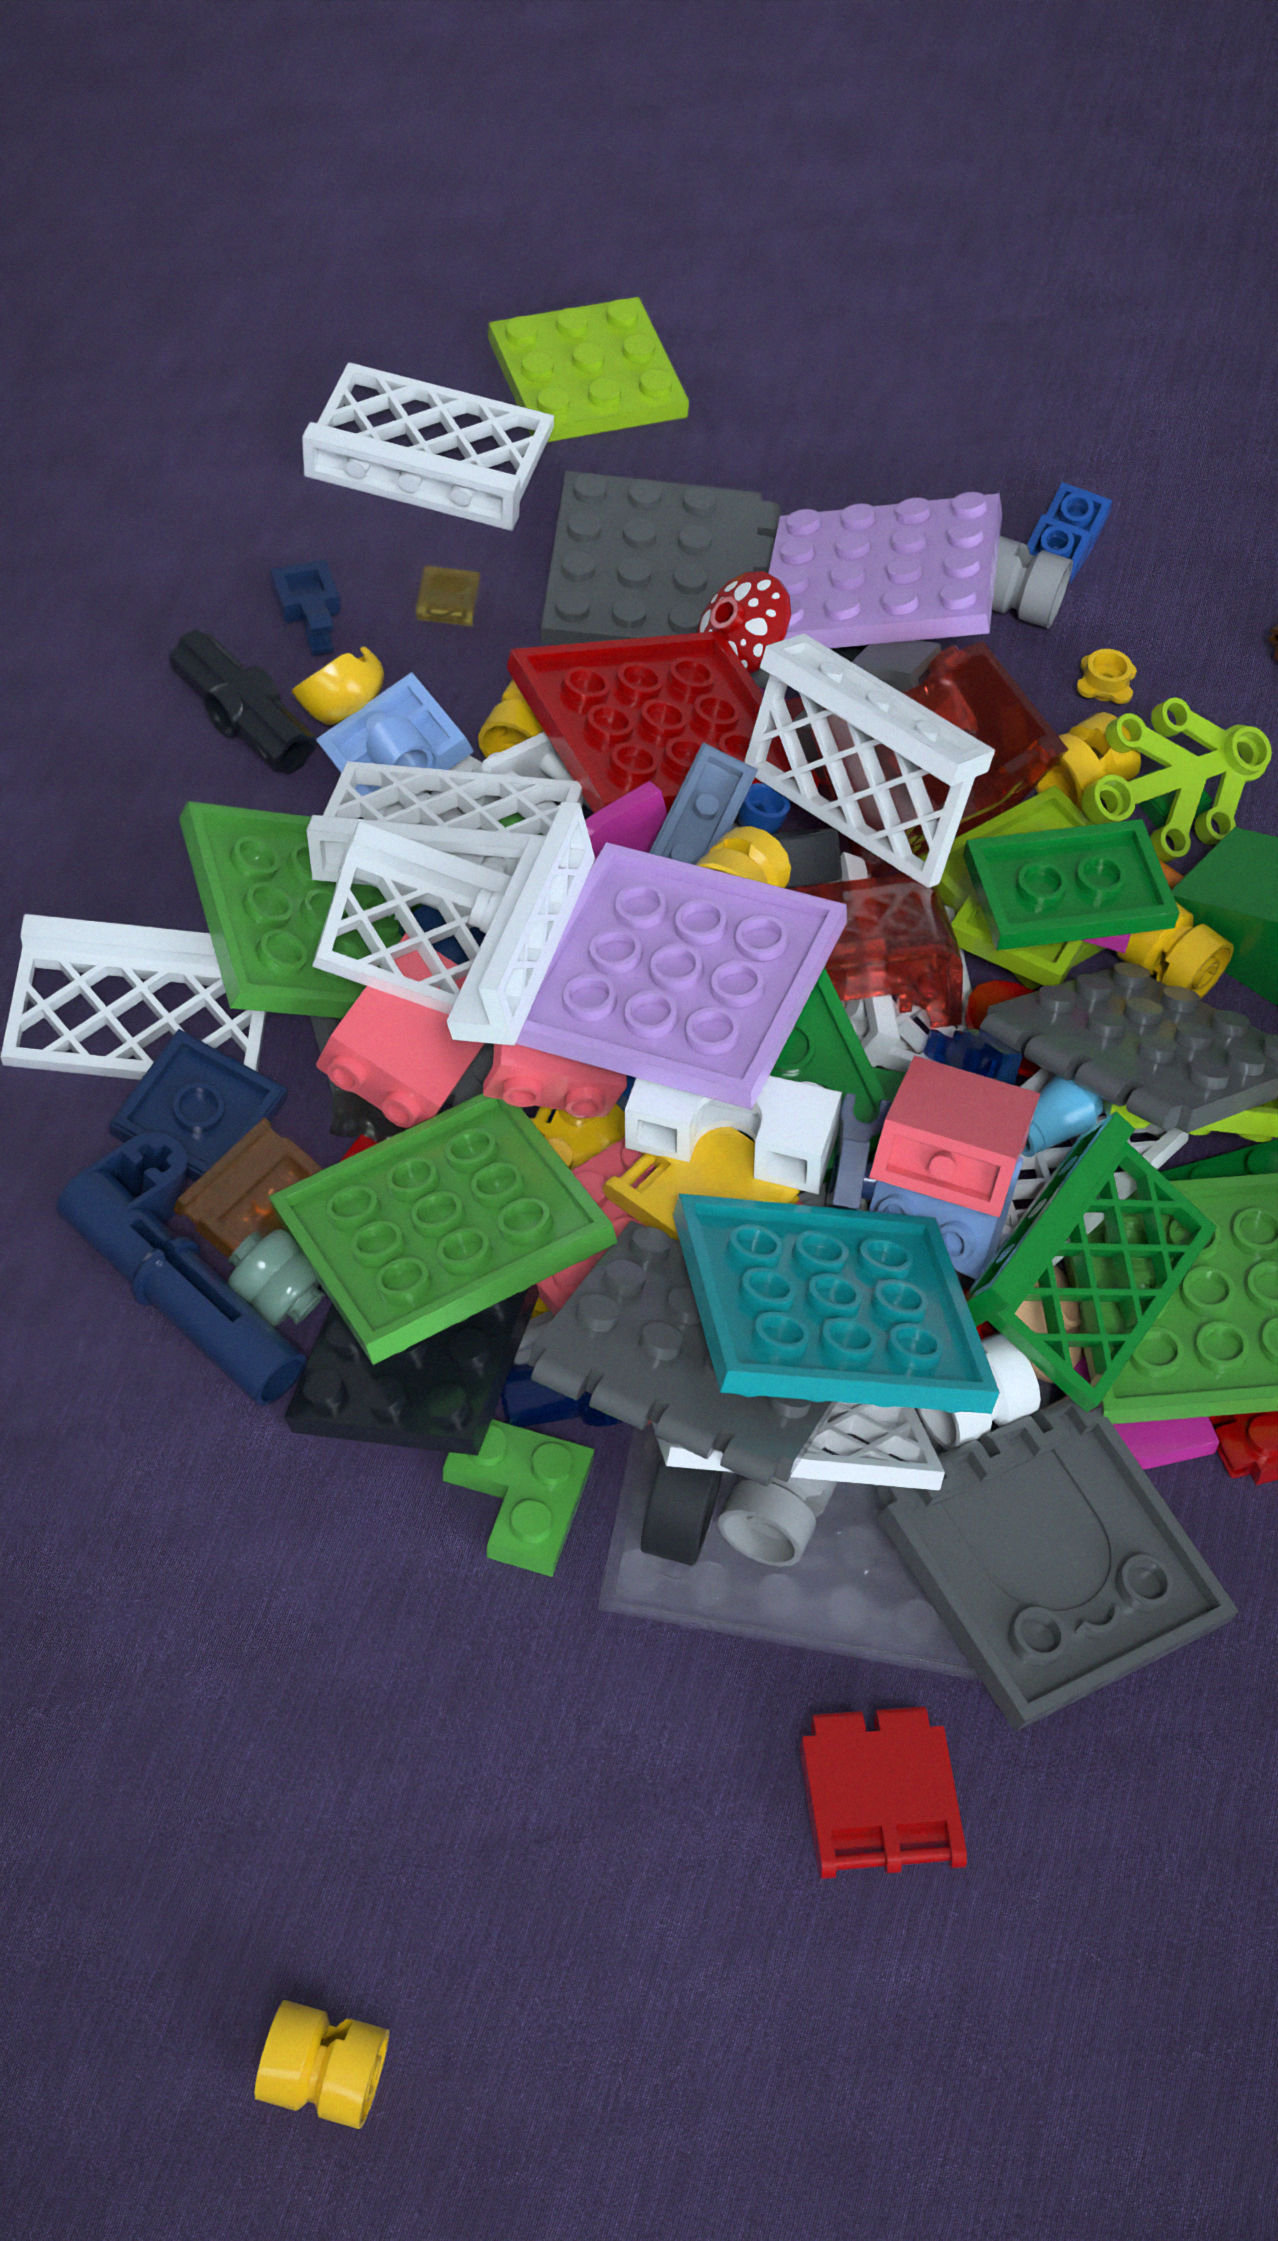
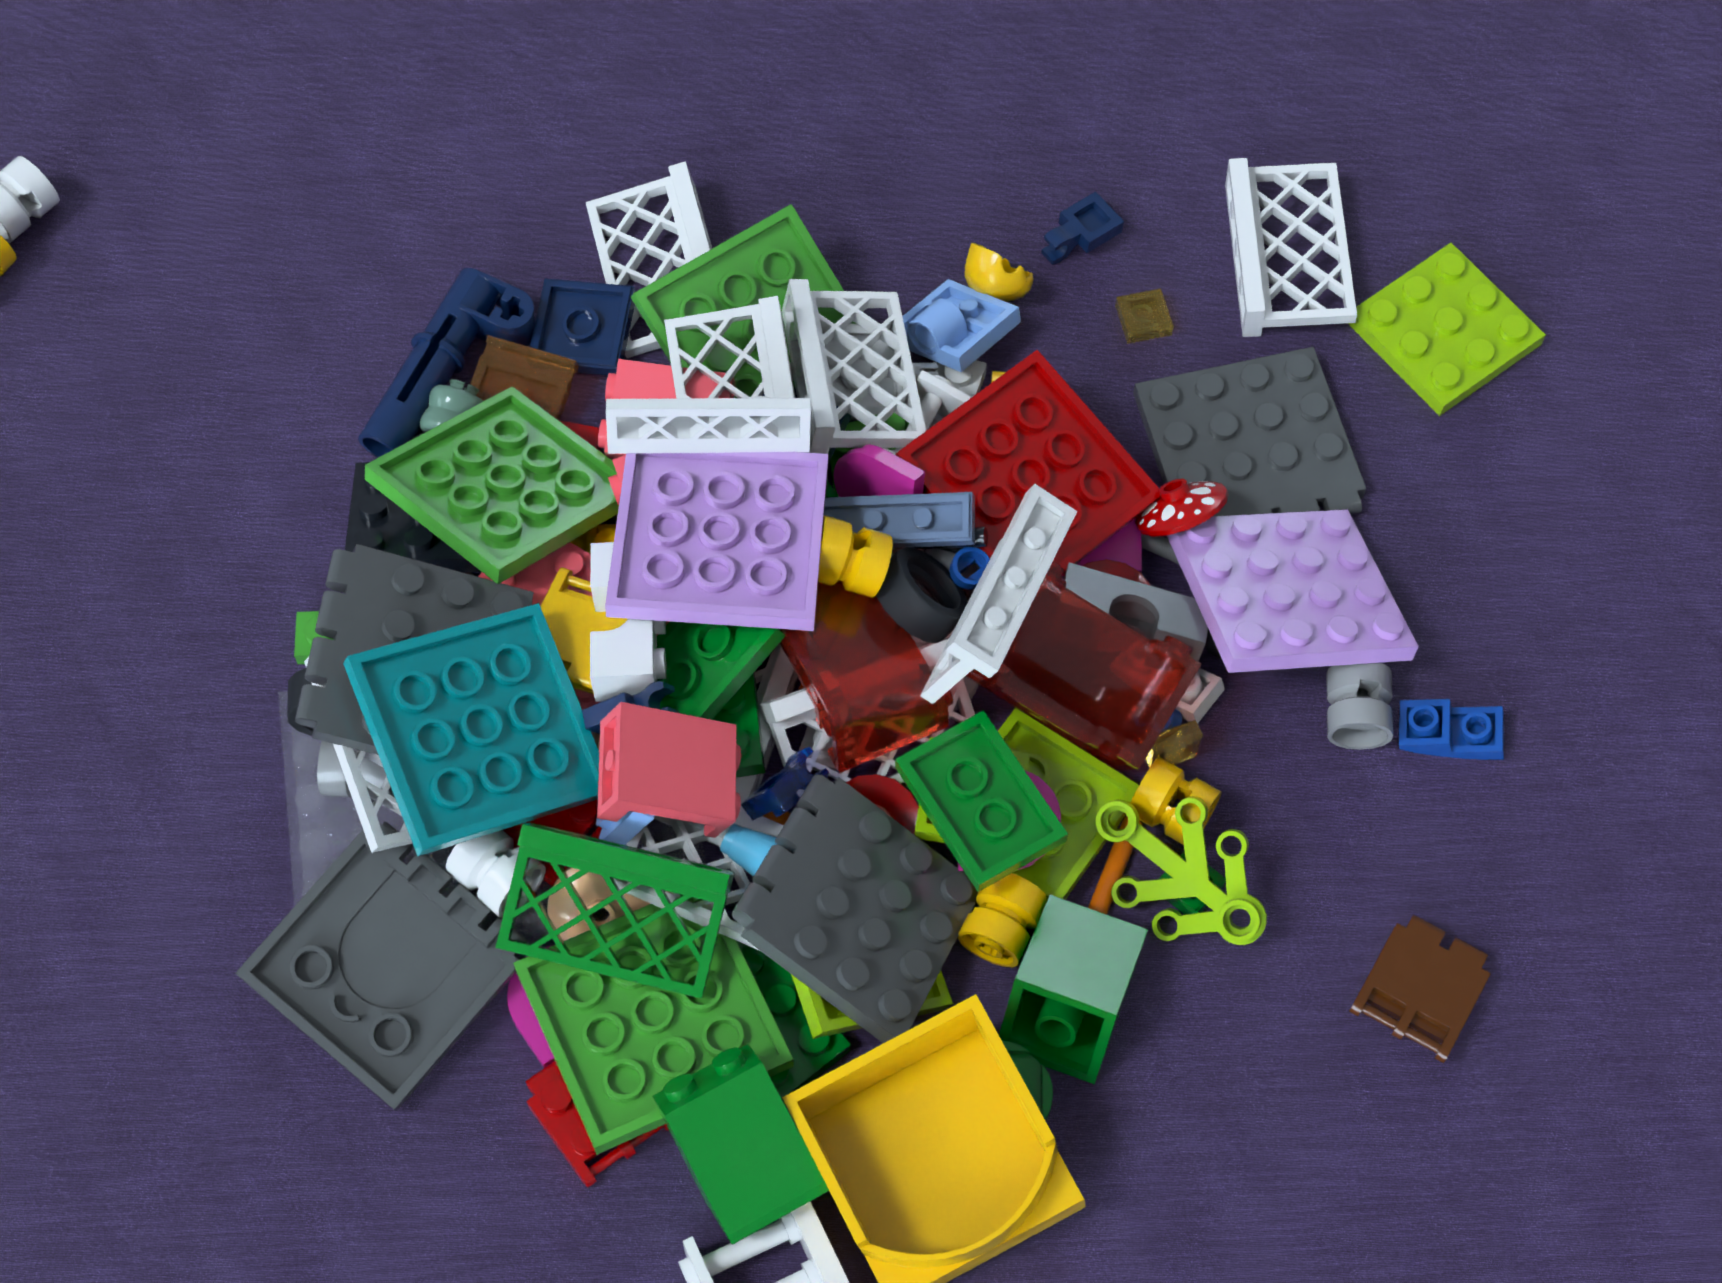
camera: 75 degrees right, 10 degrees up
(242, 702) = (960, 221): black piece -> none
(880, 1792) = (180, 907): red plate -> none
(1107, 676) = (1296, 788): yellow plate -> none

